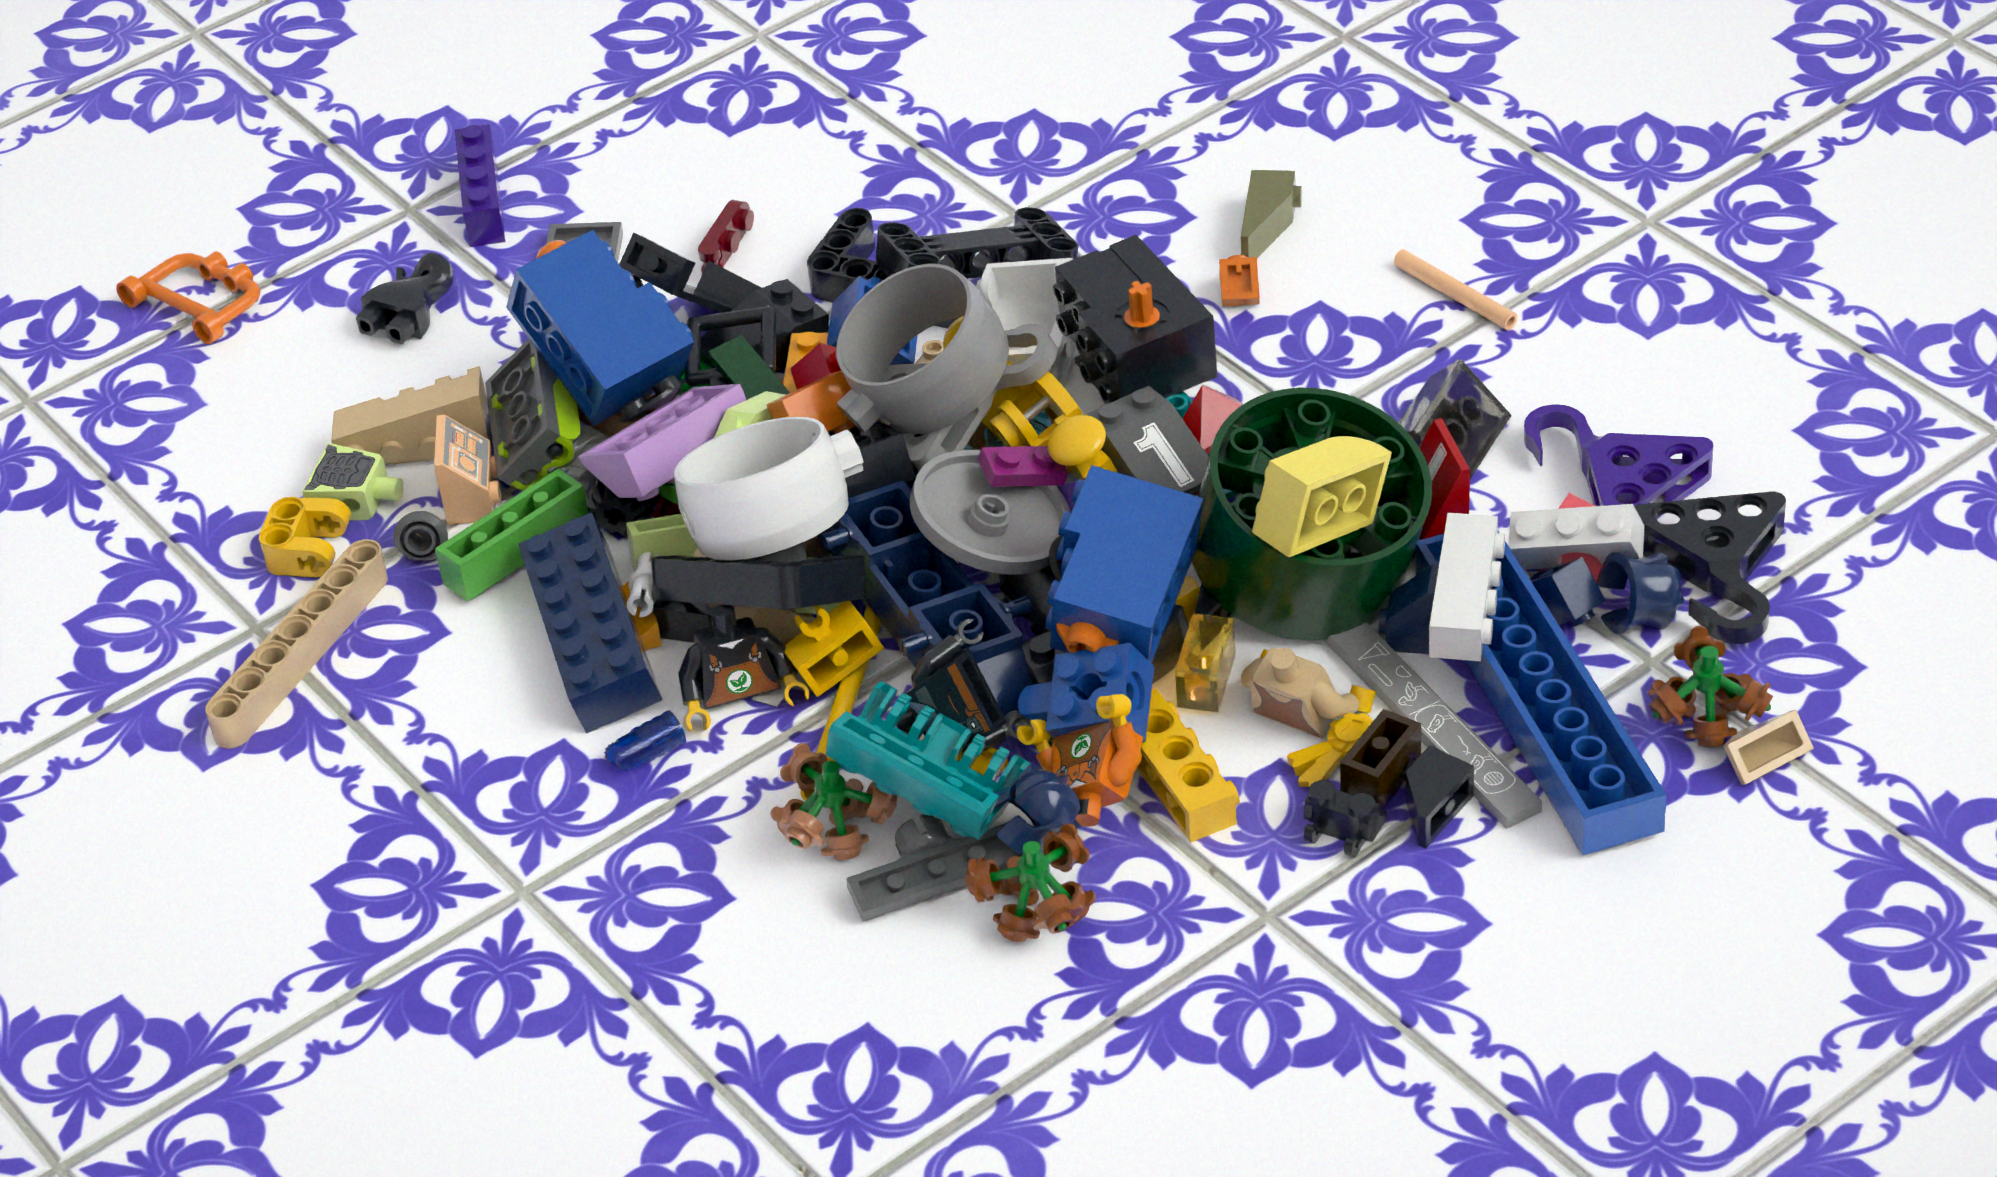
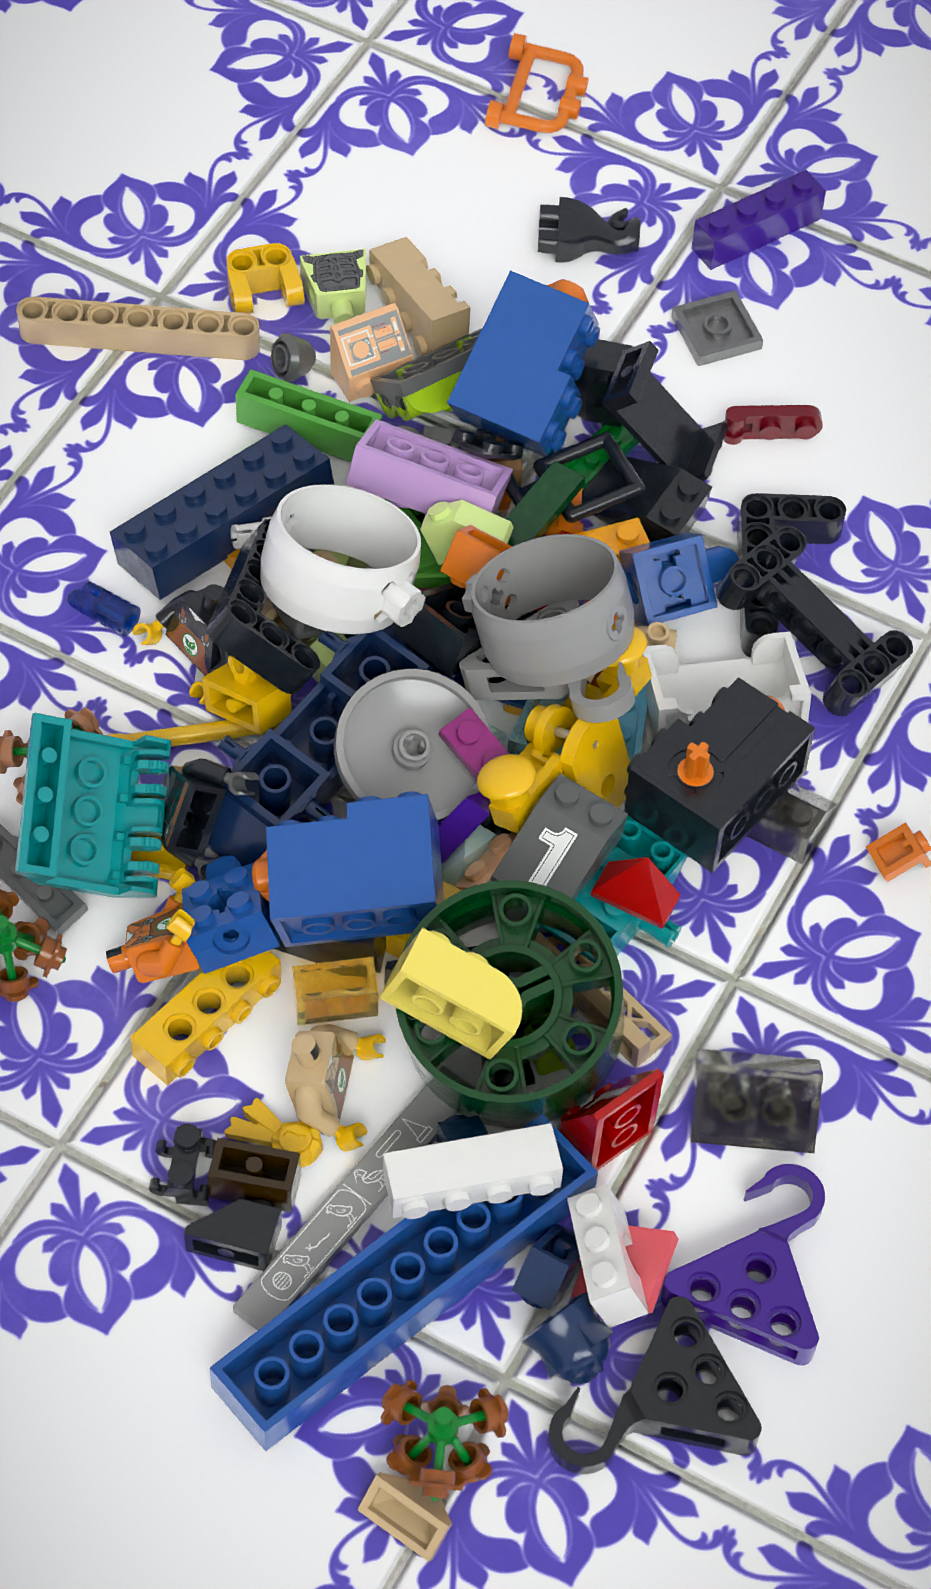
camera: 60 degrees right, 15 degrees up
(1044, 800) = (92, 917): dark blue helmet -> none

